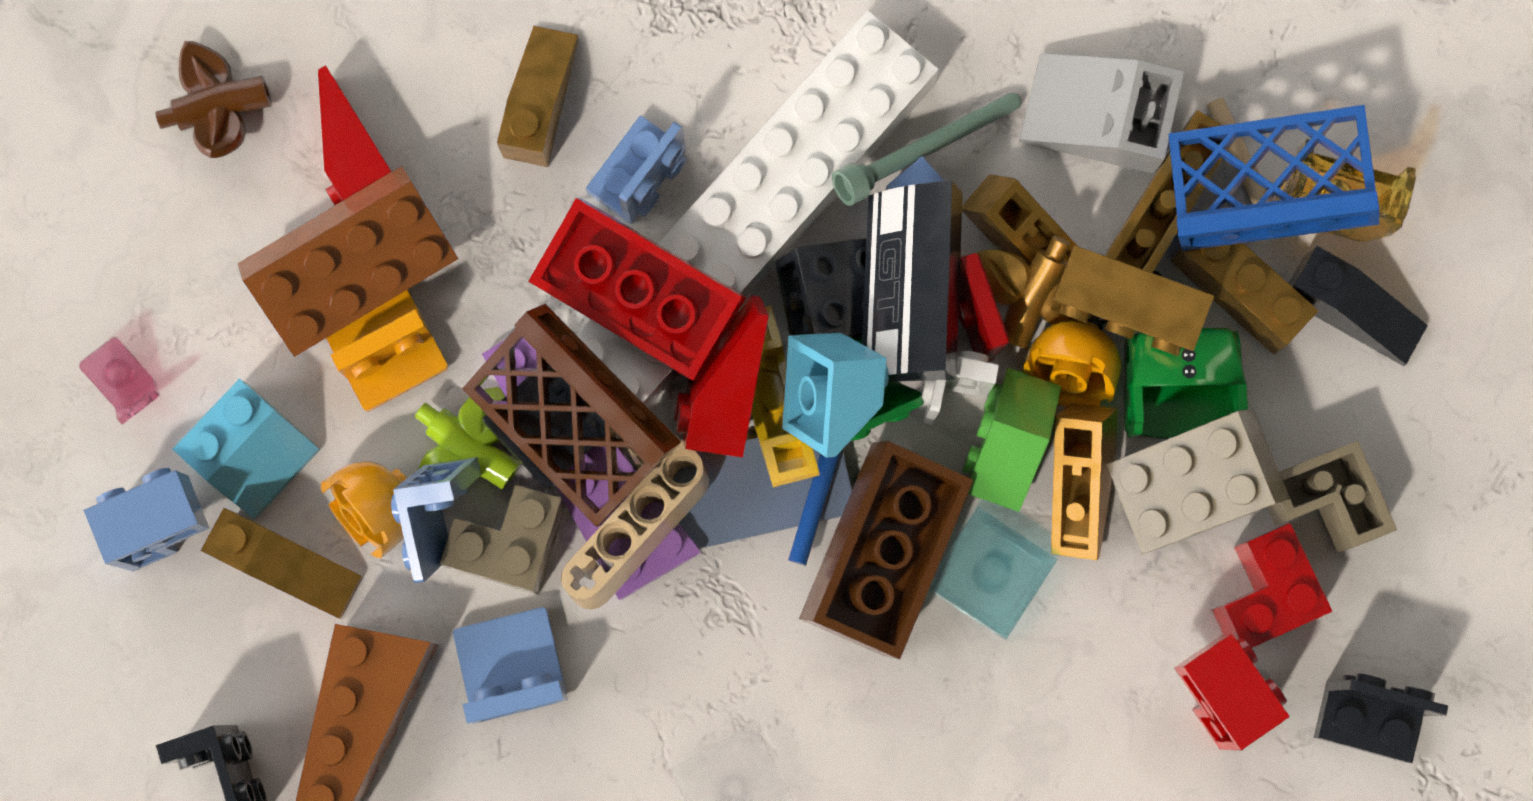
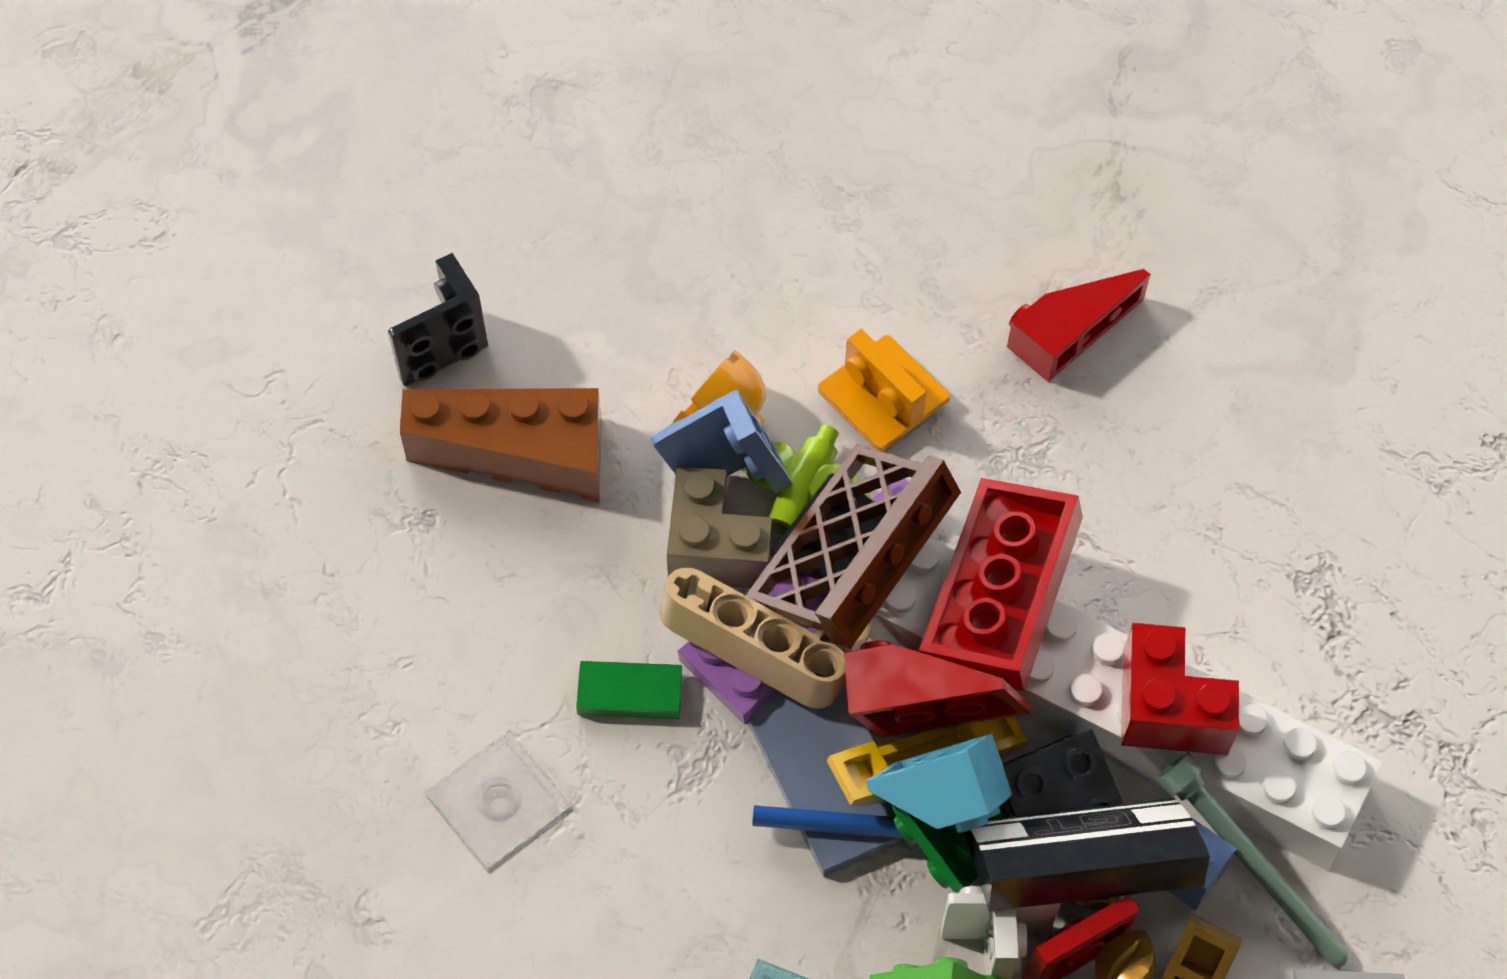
camera: 80 degrees right, 20 degrees down
(120, 378) = (799, 177): clear pink bracket -> none
(146, 521) = (663, 214): medium blue brick -> none
(212, 101) = (1087, 201): reddish brown plant -> none
(246, 449) = (755, 291): medium azure slope -> none
(281, 563) = (651, 342): pearl gold slope -> none
(346, 261) = (960, 331): dark orange brick -> none
(509, 665) = (587, 562): medium blue bracket -> none
(537, 97) = (1181, 472): pearl gold slope -> none
(638, 168) = (1134, 583): medium blue bracket -> none
(645, 651) = (629, 689): none -> green tile
(788, 182) = (1167, 707): none -> red brick
(886, 549) = (785, 895): reddish brown brick -> none

